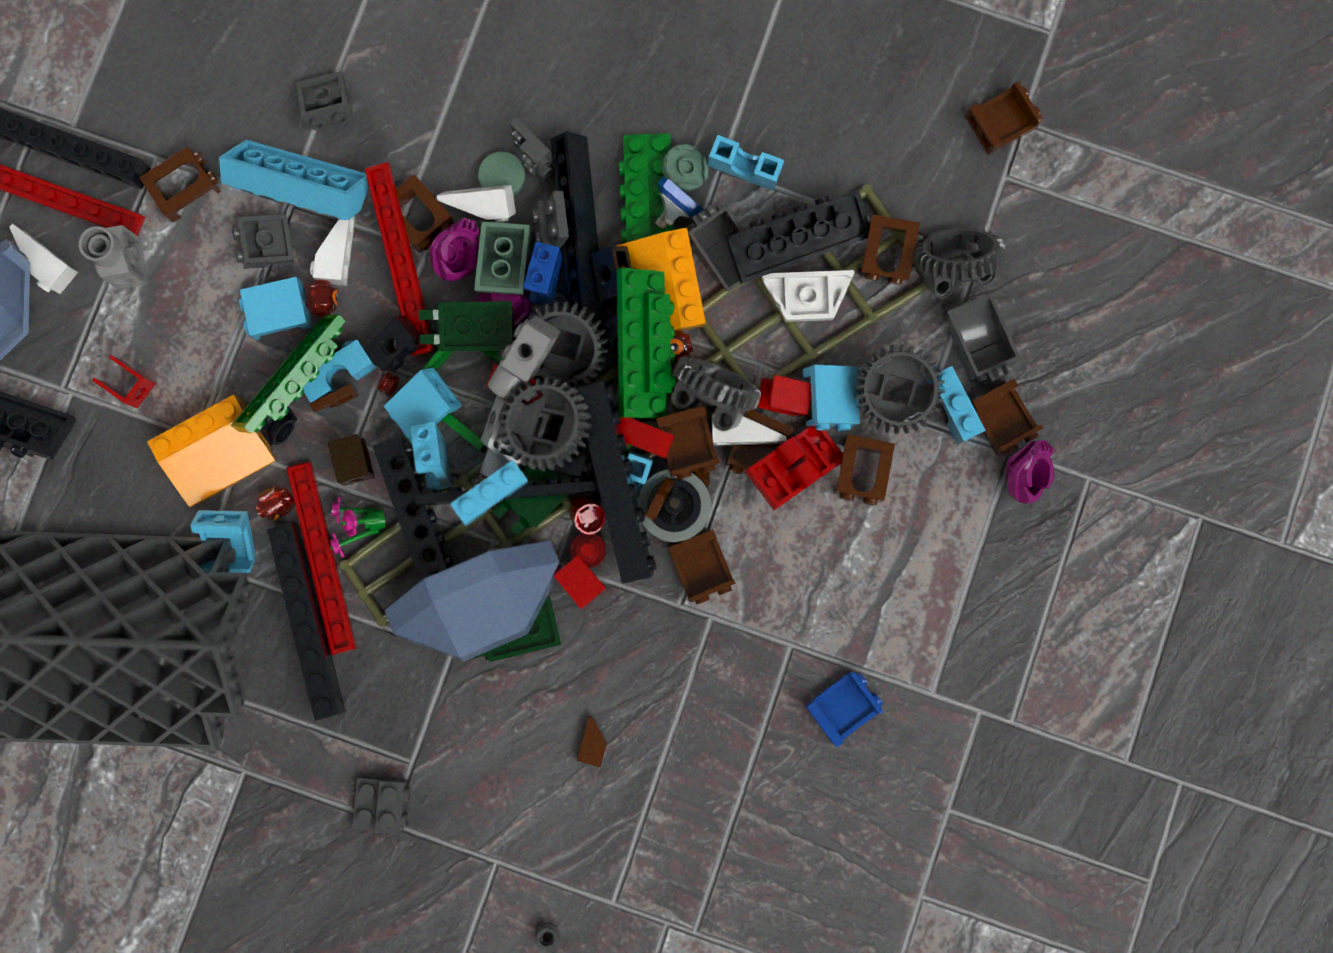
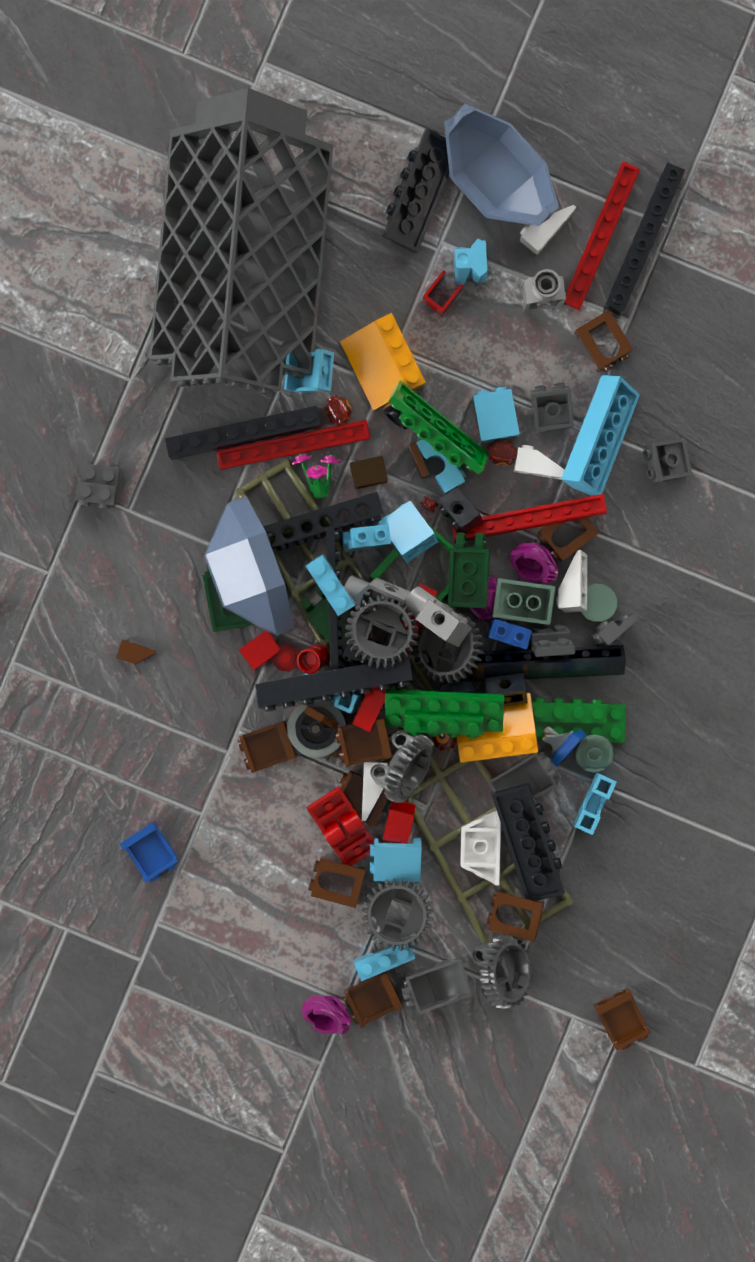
camera: 95 degrees right, 5 degrees up
(83, 347) = (470, 263): none -> medium azure piece

